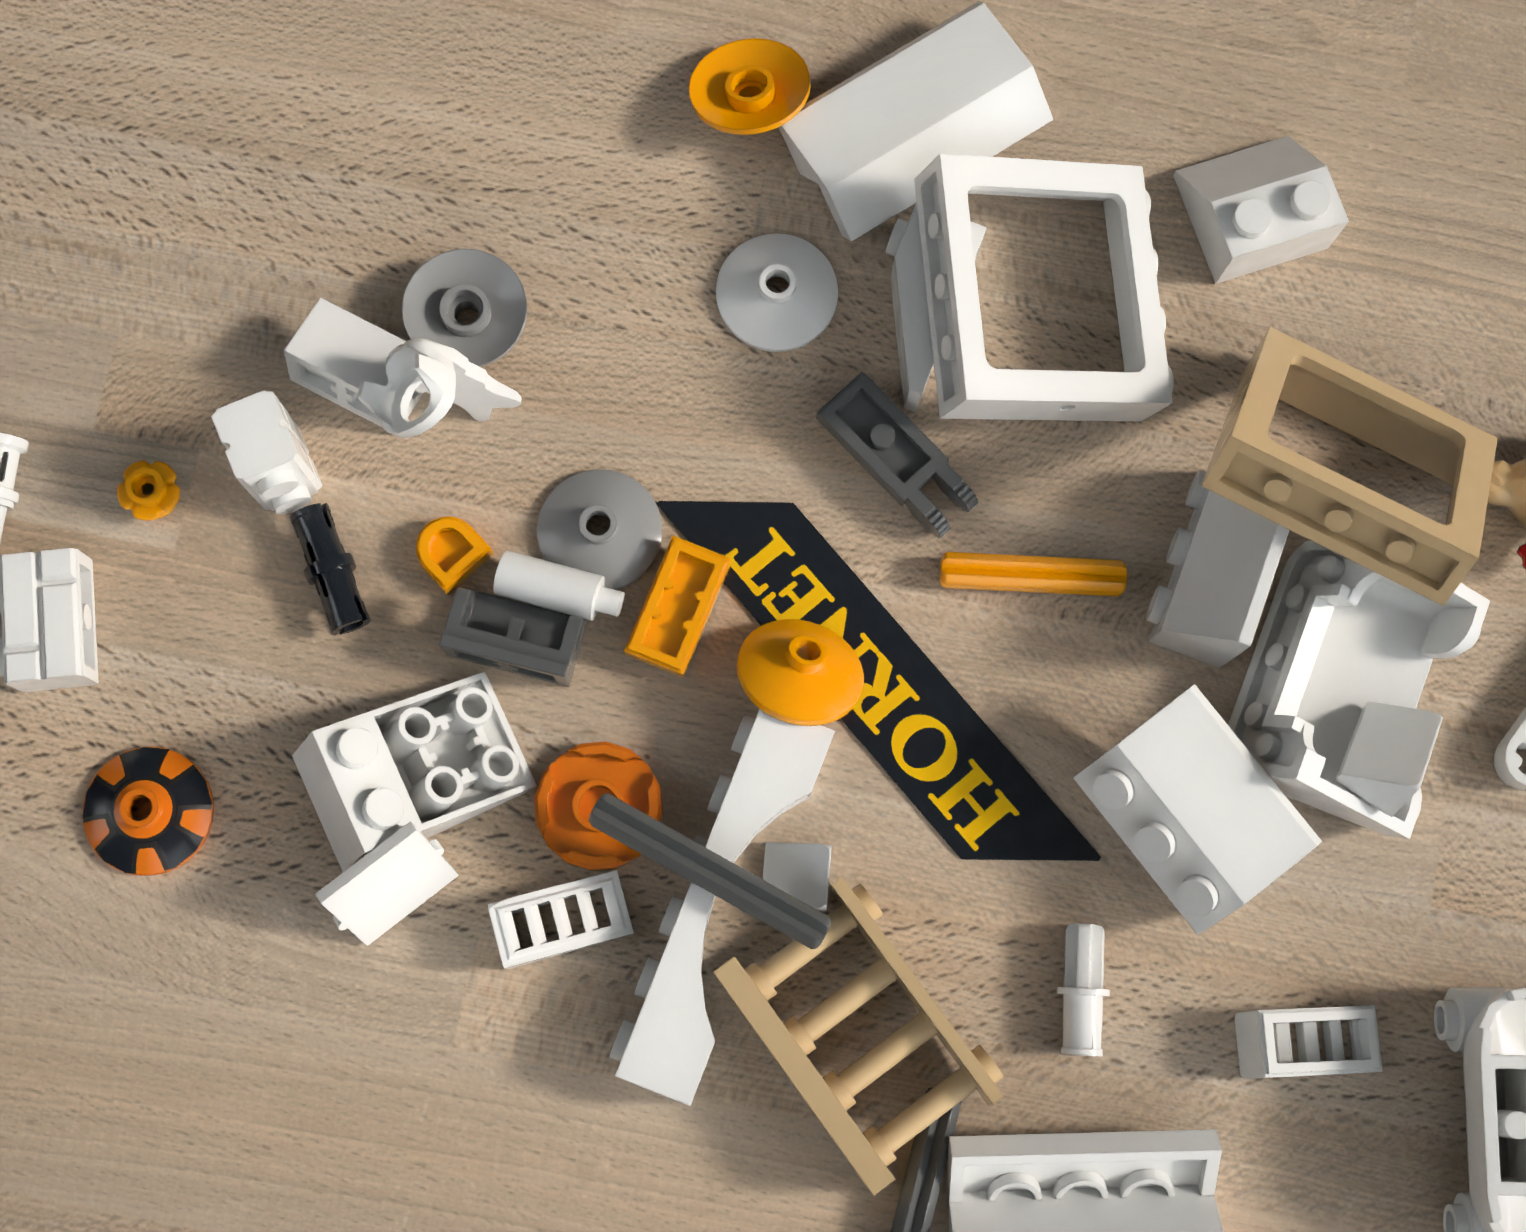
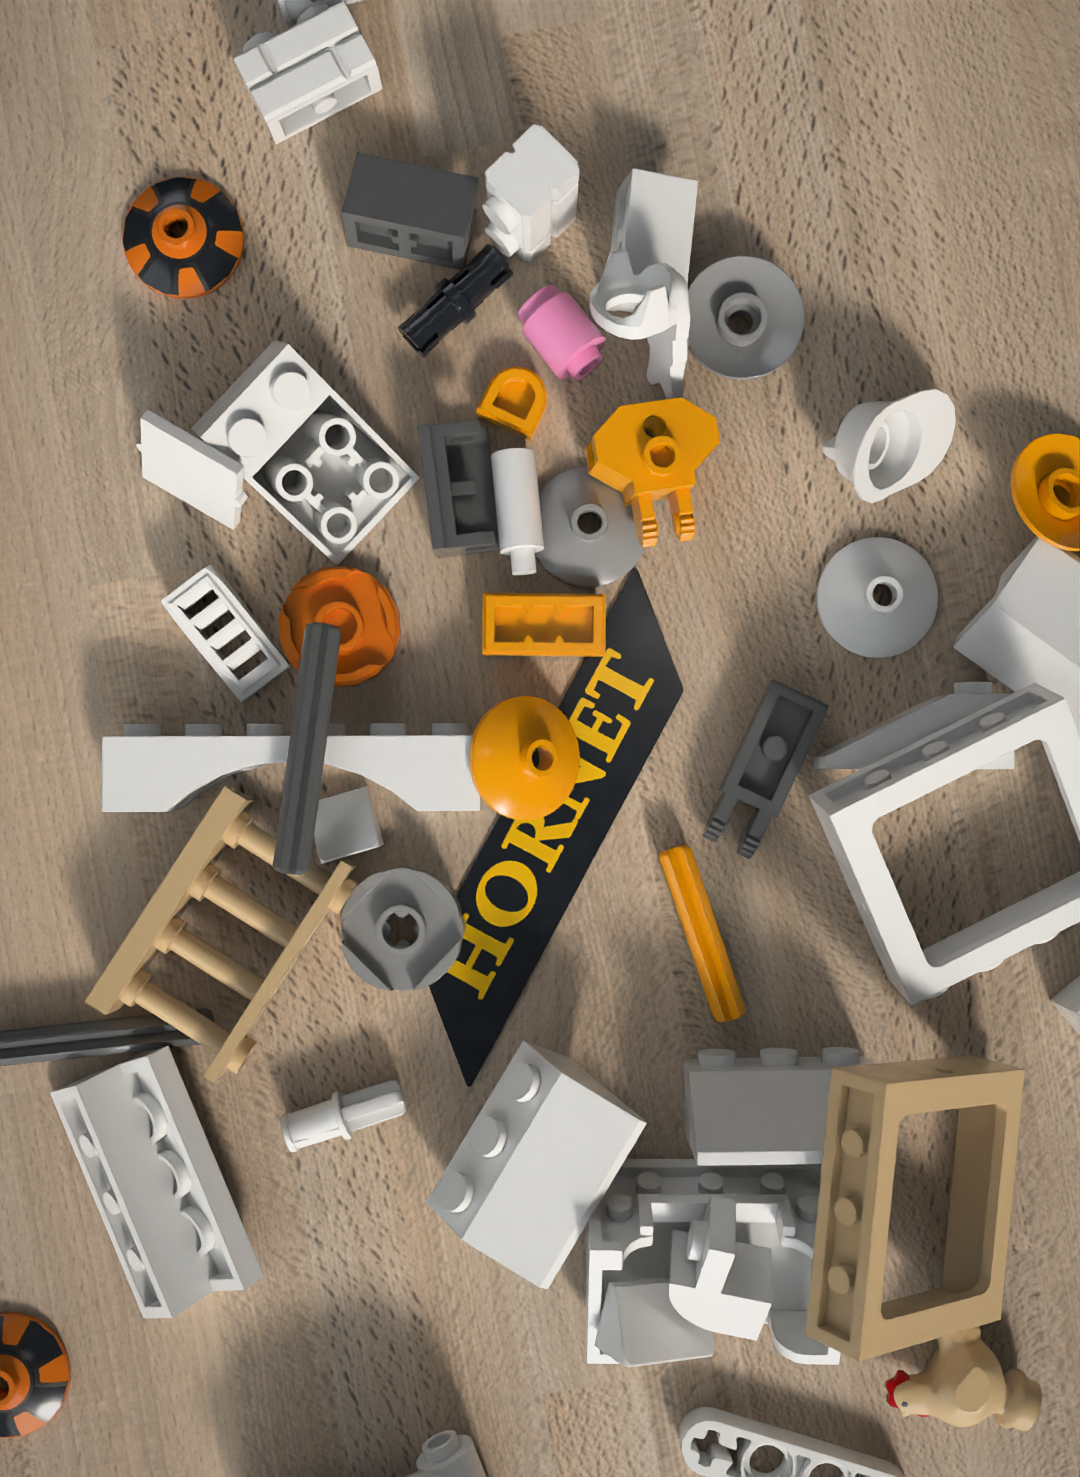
camera: 70 degrees right, 10 degrees up
(160, 501) = (464, 125): light orange plate -> none
(226, 575) = (410, 211): none -> dark grey hinge
(406, 480) = (561, 333): none -> bright pink brick
(561, 436) = (654, 467): none -> light orange hinge
(639, 221) = (892, 442): none -> white piece
(933, 823) = (367, 929): none -> light grey plate
(1267, 1049) = (359, 1292): white slope -> none
(1367, 680) = (719, 1280): none -> white brick

